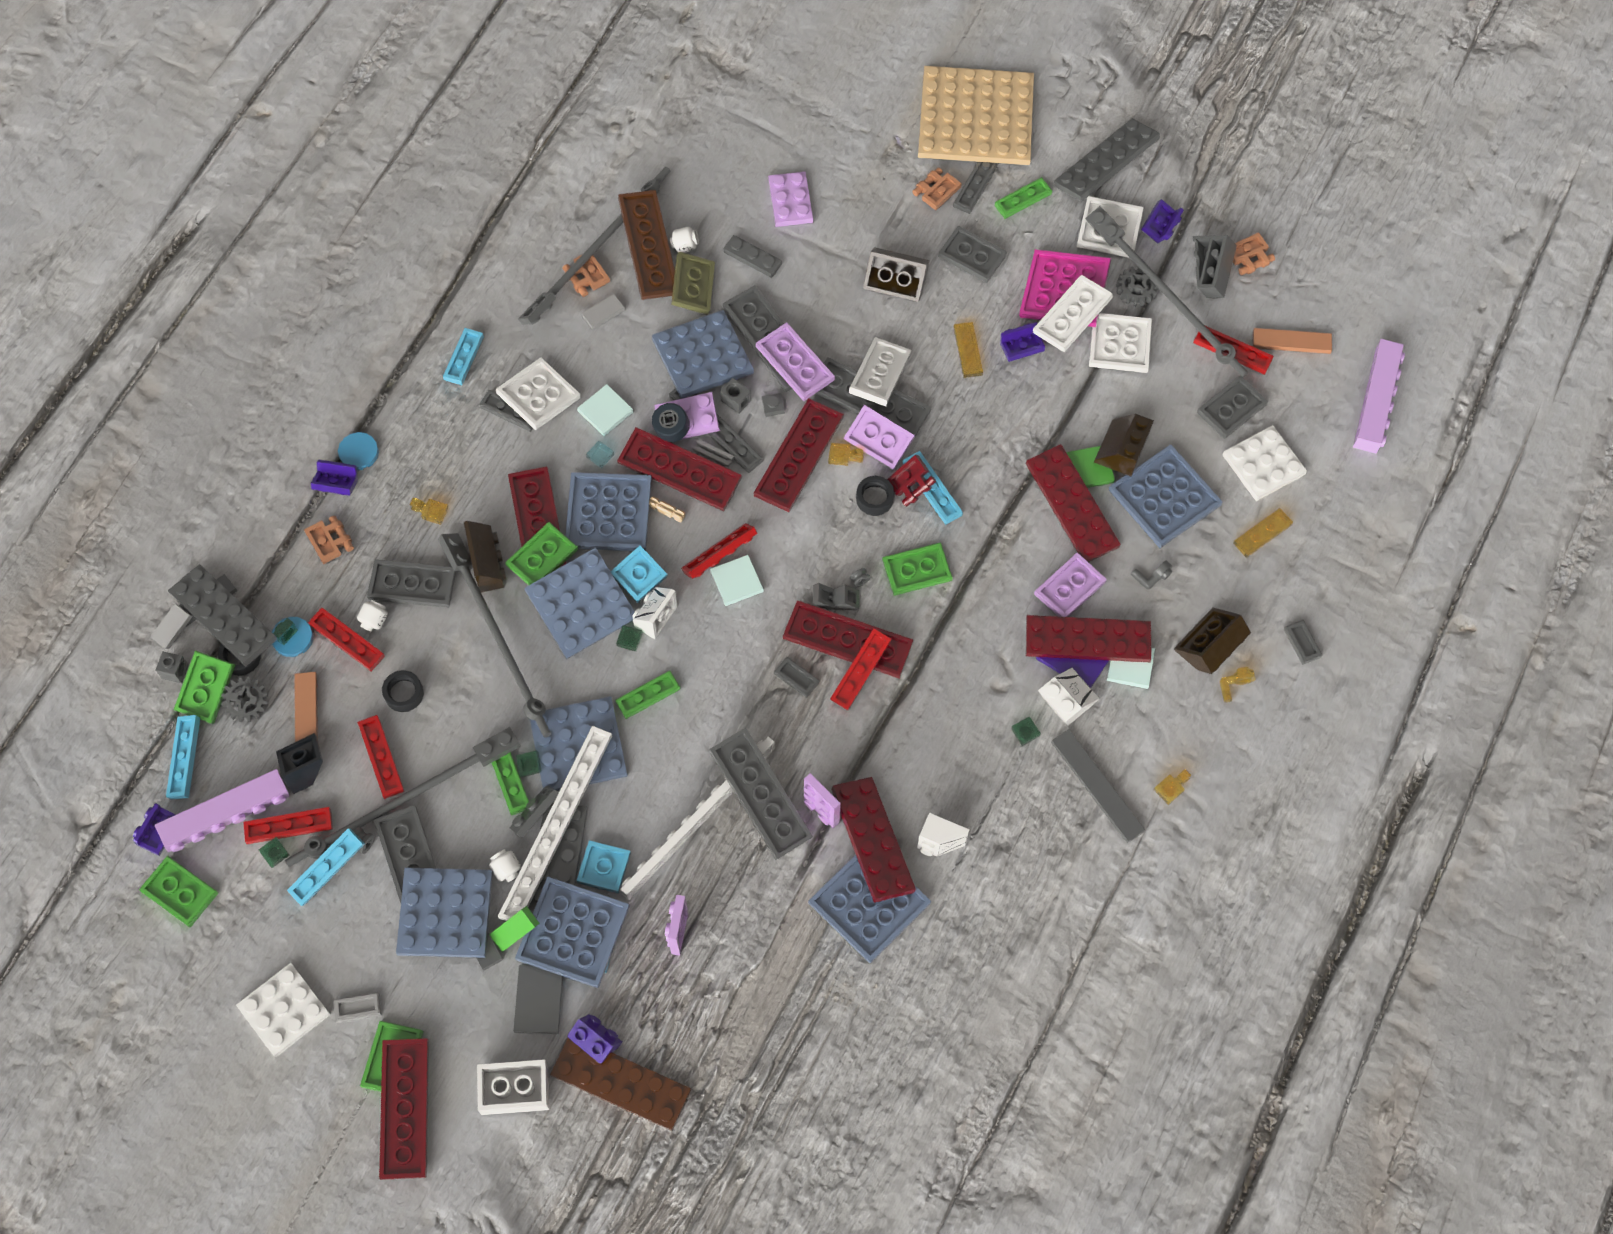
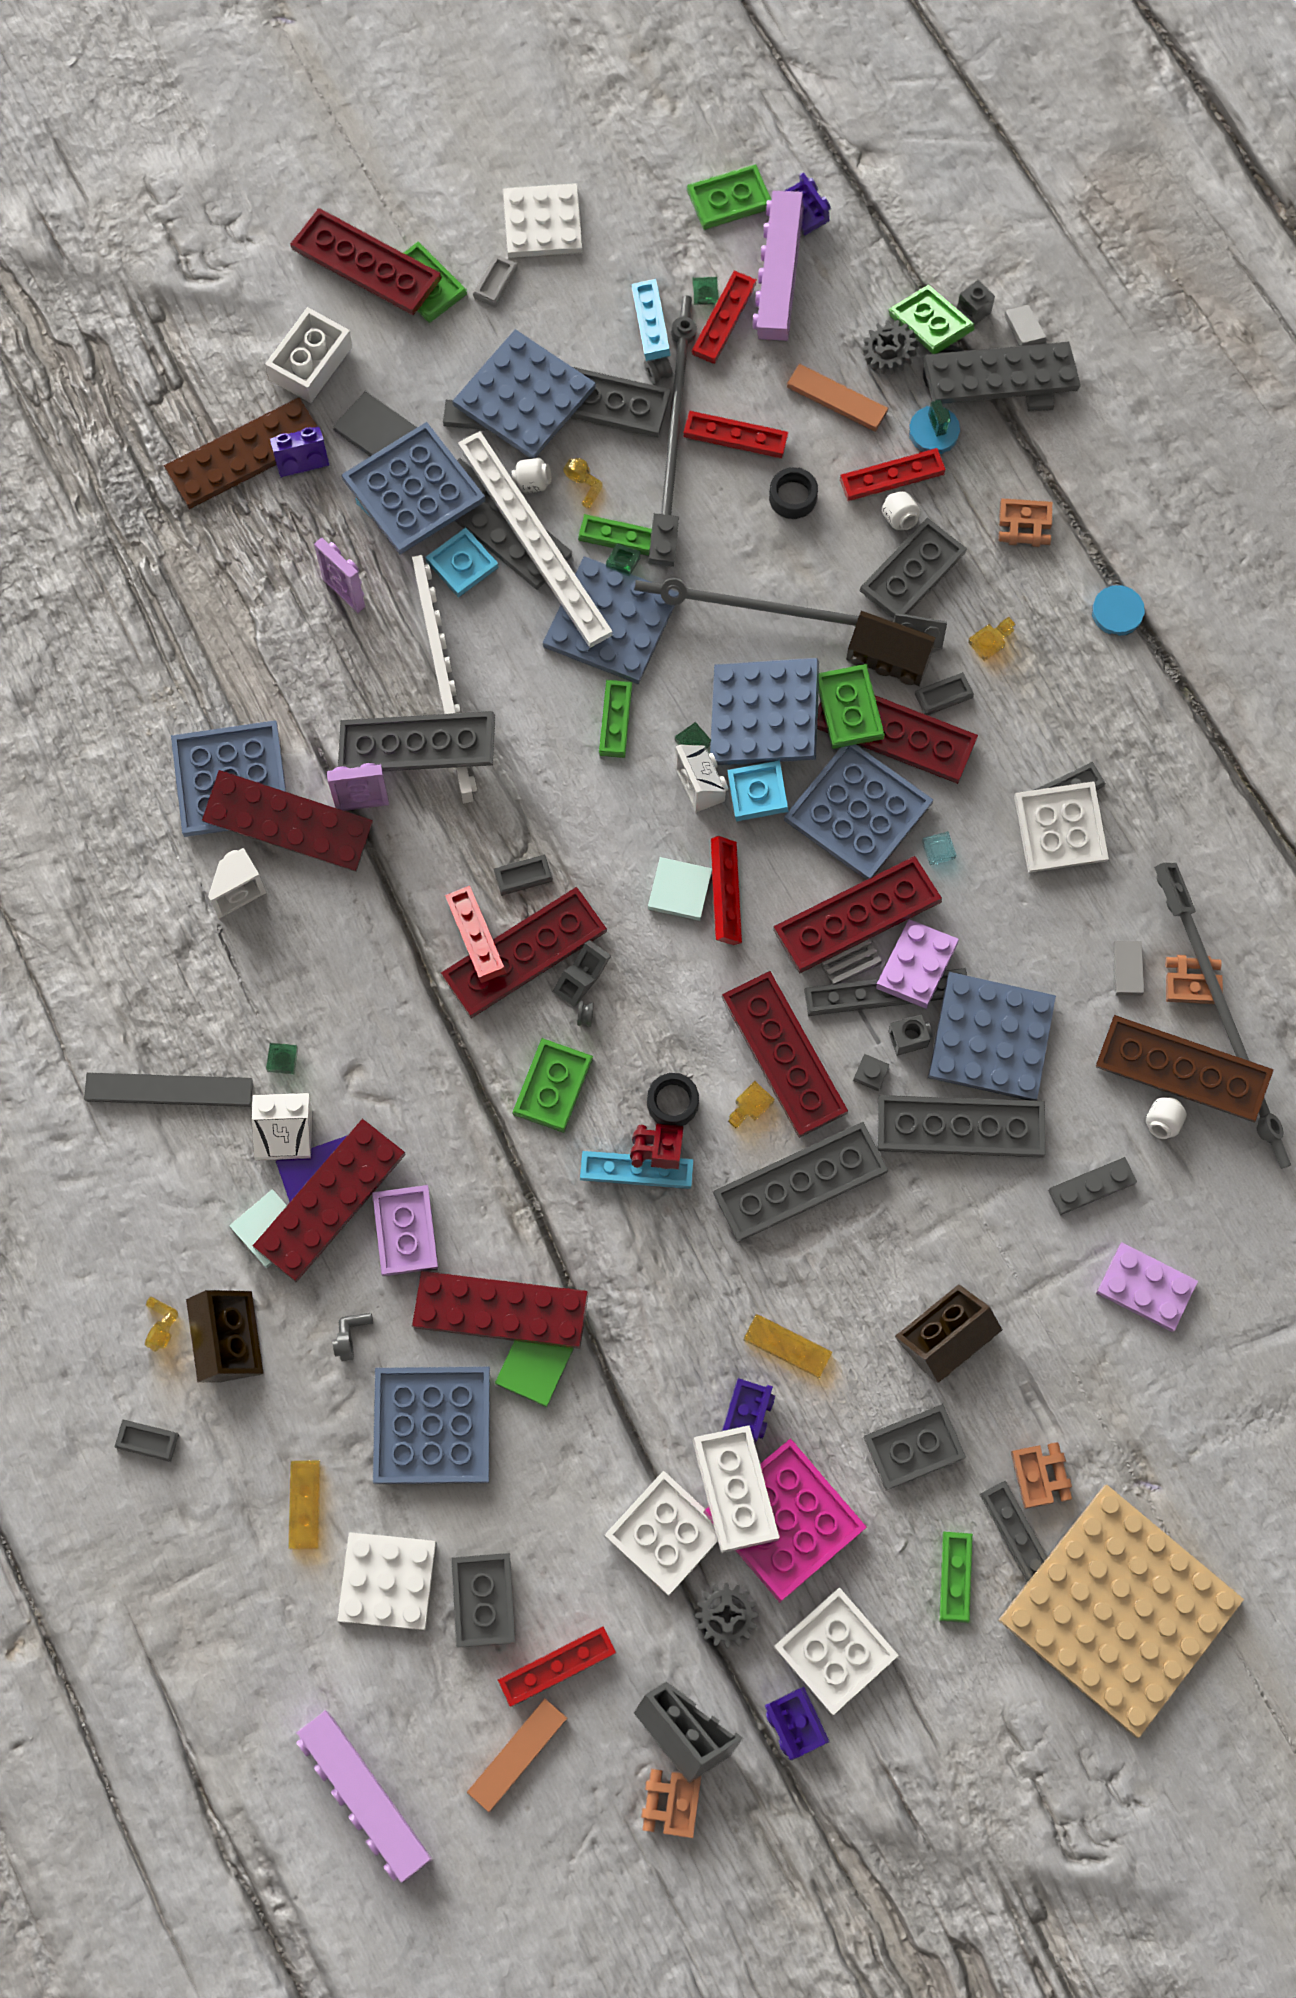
camera: 125 degrees right, 5 degrees up
(183, 757) = (868, 265): medium azure plate -> none
(300, 763) = (781, 354): black slope -> none
(335, 477) = (1095, 565): dark purple bracket -> none
(463, 356) = (1168, 781): medium azure plate -> none
(479, 837) = (578, 471): none -> clear yellow plate
(489, 514) = (944, 694): none -> dark grey tile
(514, 928) = (453, 434): tile -> none
(533, 811) = (567, 531): dark grey hinge -> none
(605, 410) = (992, 888): light aqua tile -> none
(667, 509) = (819, 872): tan axle -> none
(673, 429) = (907, 934): black wheel -> none
(693, 283) = (1095, 1085): olive plate -> none
(795, 361) = (903, 1122): lavender plate -> none
(879, 437) = (739, 1152): lavender plate -> none
(880, 371) = (823, 1211): white plate -> none
(1106, 159) = (937, 1728): dark grey plate -> none
(1112, 234) = (818, 1635): dark grey bar -> none
(1124, 443) = (528, 1423): dark brown slope -> none
(1172, 788) = (104, 1159): clear yellow plate -> none

